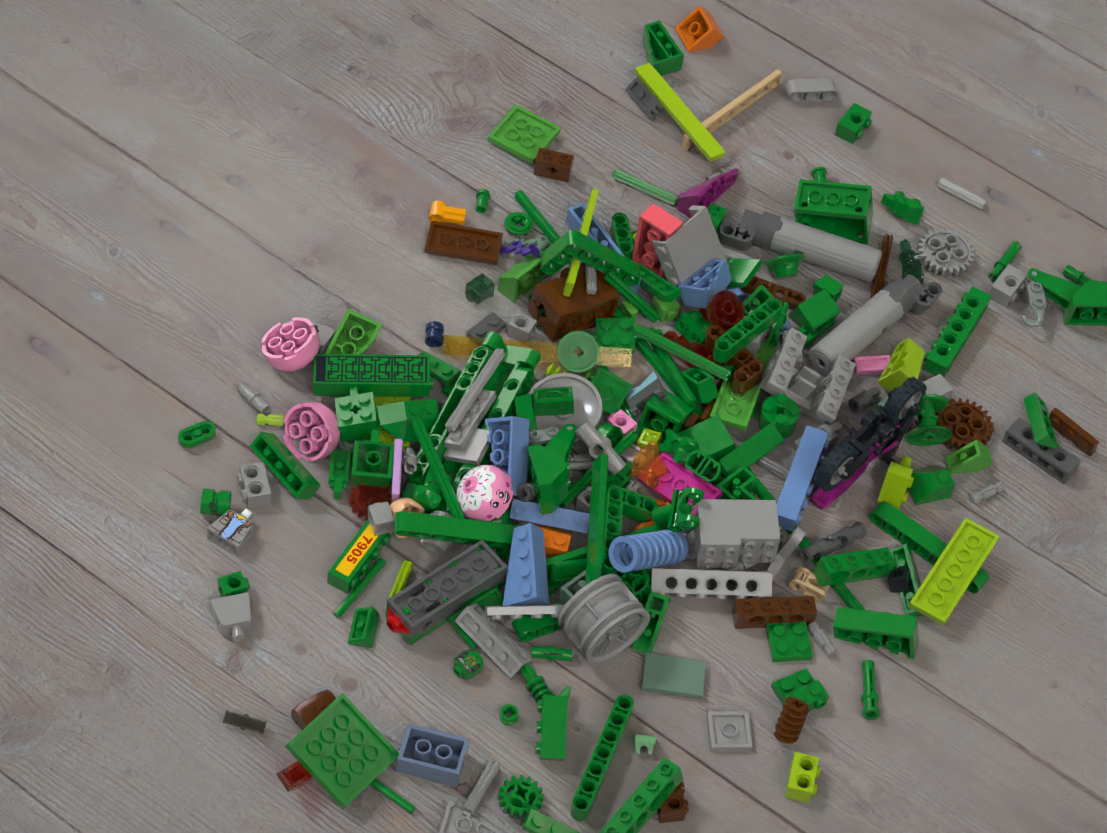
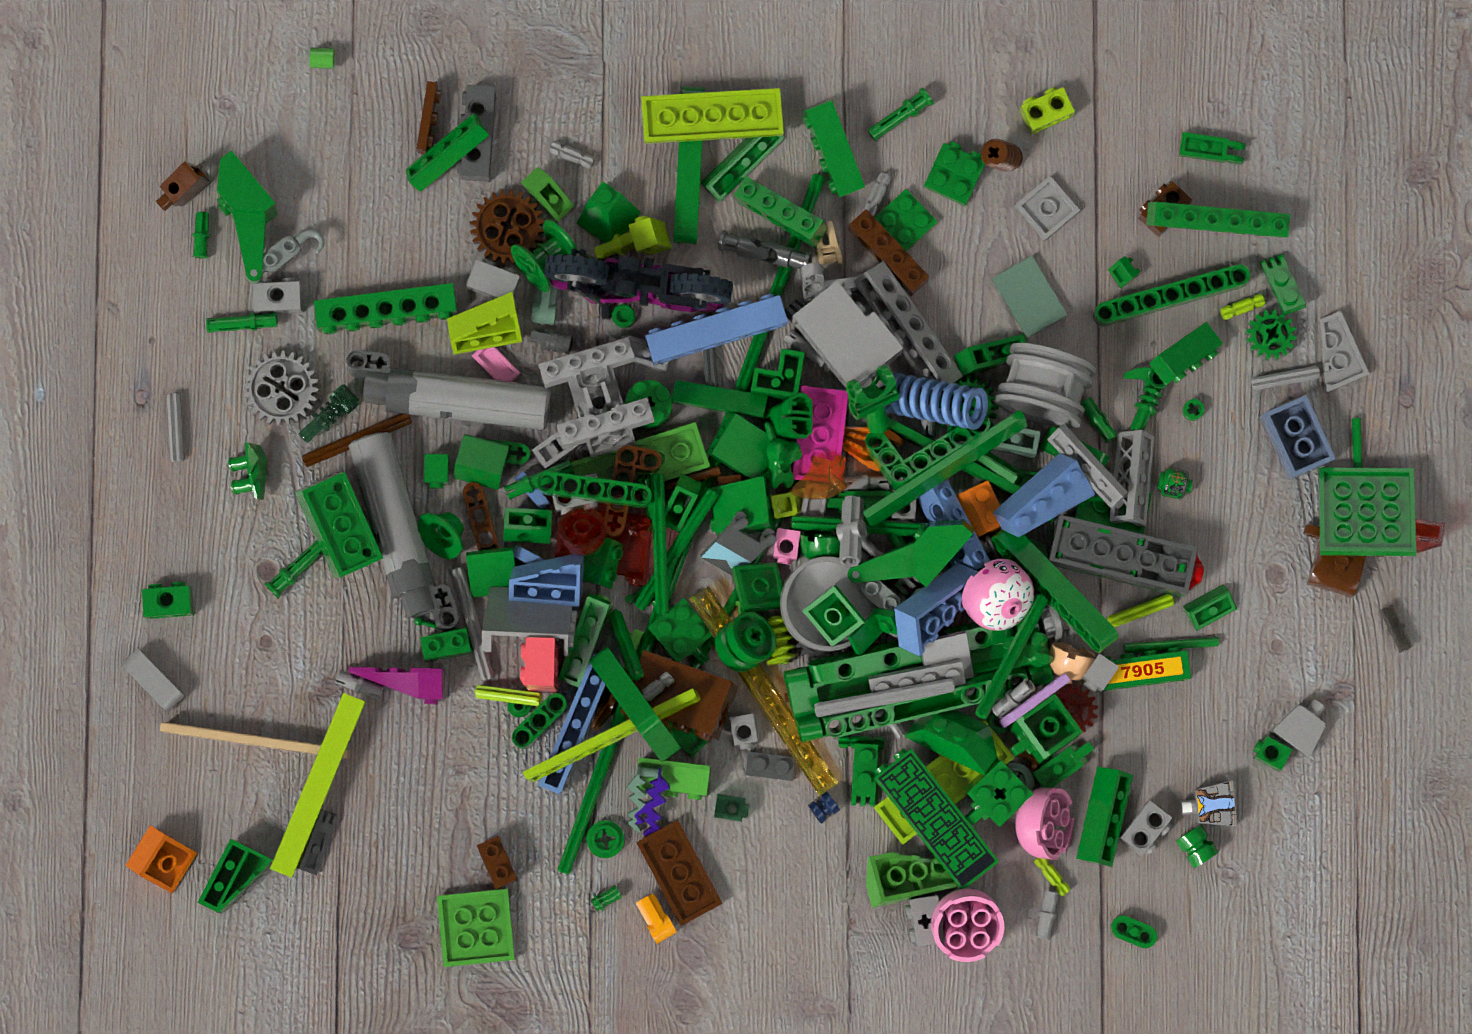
camera: 120 degrees left, 30 degrees up
(526, 492) = (963, 560): dark grey bush -> none
(556, 798) = (1242, 306): none -> lime axle
(645, 187) = (443, 752): green axle -> none
(899, 580) = (751, 166): black slope -> none

